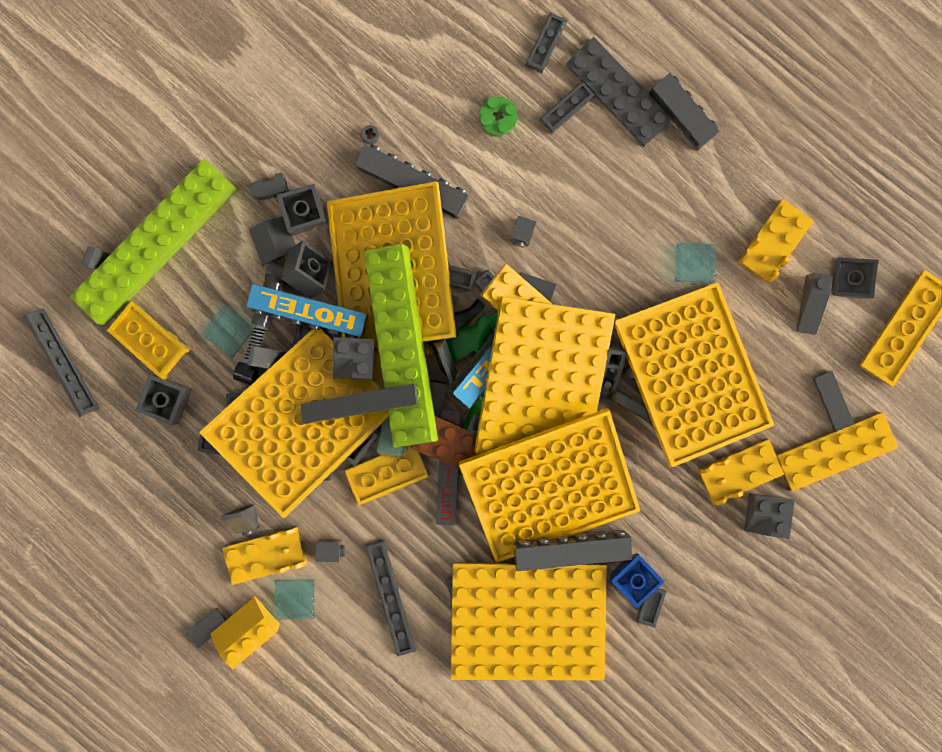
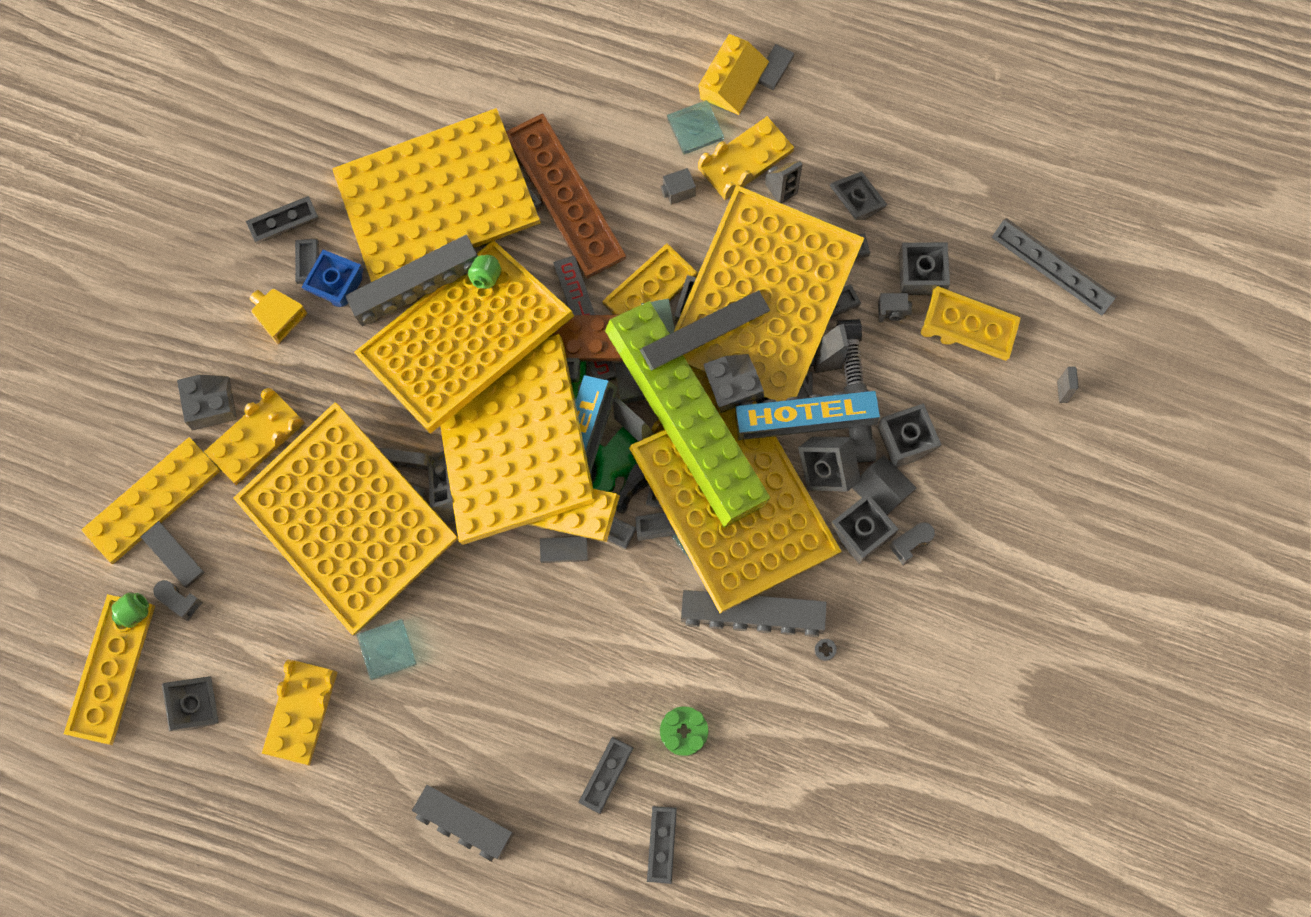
camera: 155 degrees right, 15 degrees down
(153, 243) = (1013, 432): lime brick -> none
(188, 484) = (858, 196): none -> dark grey slope
(202, 379) = (893, 306): none -> dark grey brick
(228, 331) = (889, 370): clear light blue tile -> none
(235, 267) = (908, 435): none -> dark grey slope
(390, 598) = (595, 167): dark grey tile -> none
(424, 580) = (565, 196): none -> dark orange plate
(514, 532) = (484, 271): none -> bright green head
(523, 231) = (601, 604): dark grey brick -> none
(619, 91) = (551, 819): dark grey plate -> none
(661, 647) = (282, 220): none -> dark grey brick
(691, 568) = (277, 313): none -> yellow torso
(814, 301) = (231, 656): dark grey slope -> none
(845, 366) = (170, 596): none -> dark grey leg
(881, 364) = (130, 609): none -> bright green head

